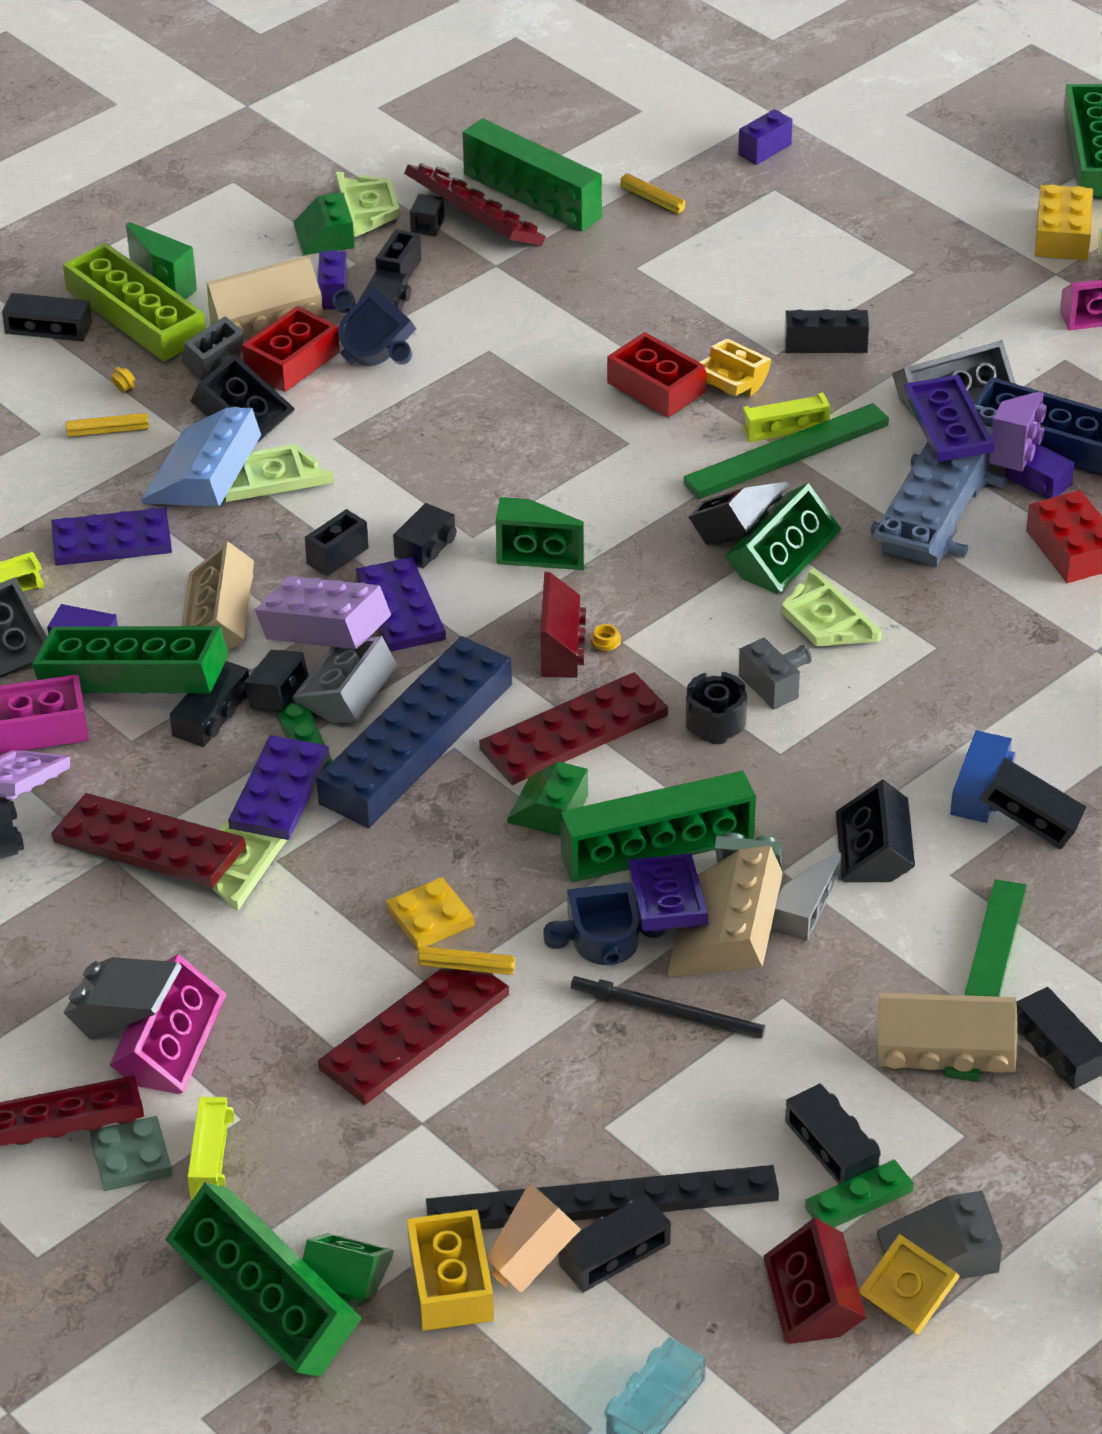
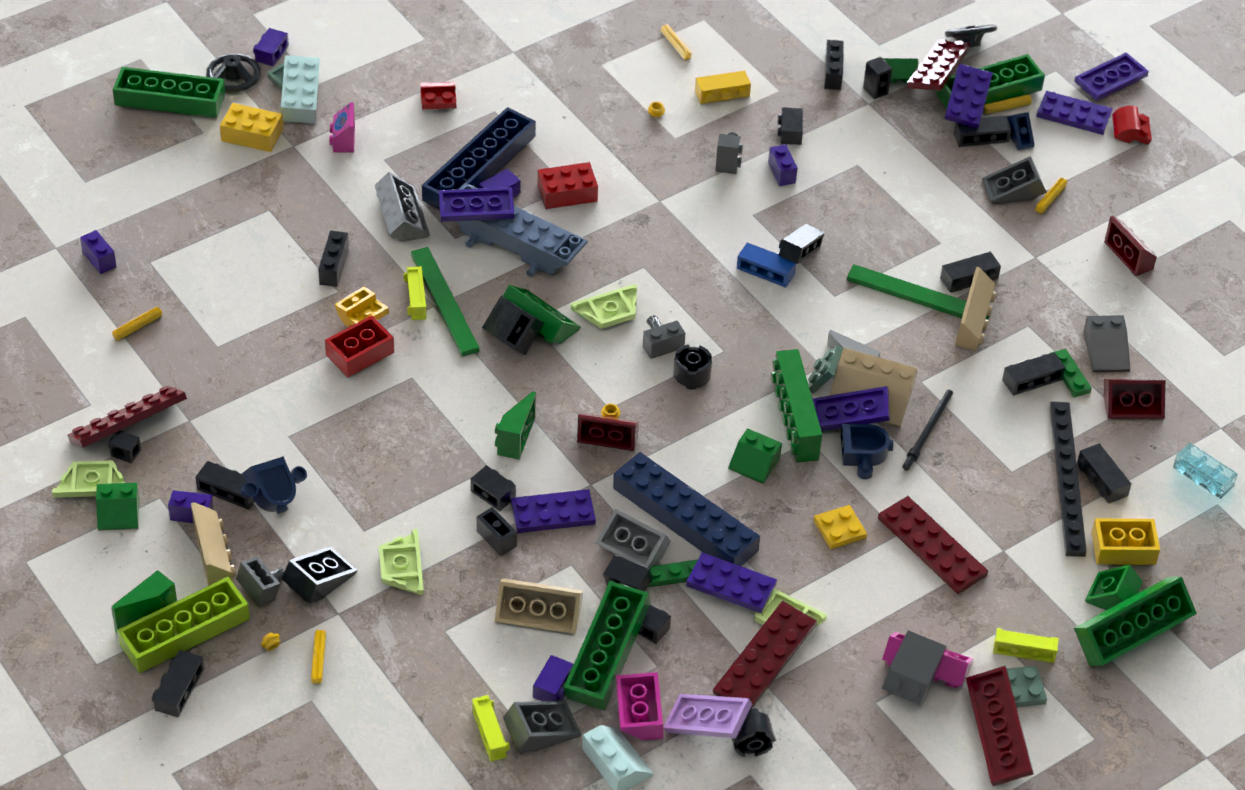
camera: 85 degrees left, 5 degrees up
(111, 536) = (445, 663): dark purple plate -> none
(205, 460) = (387, 598): light blue slope -> none
(291, 348) = (271, 536): red brick -> none
(323, 612) = (577, 540): lavender brick -> none
(400, 253) = (180, 464): black brick -> none
(466, 960) = (895, 507): yellow axle -> none
(530, 1240) = (1107, 499): light nougat slope -> none
(532, 174) = (107, 378): green brick -> none
(573, 728) = (688, 440): dark red plate -> none
(875, 835) = (808, 318): black slope -> none
(908, 1284) = (1139, 358): yellow plate -> none
(1017, 430) = (492, 173): medium lavender slope -> none

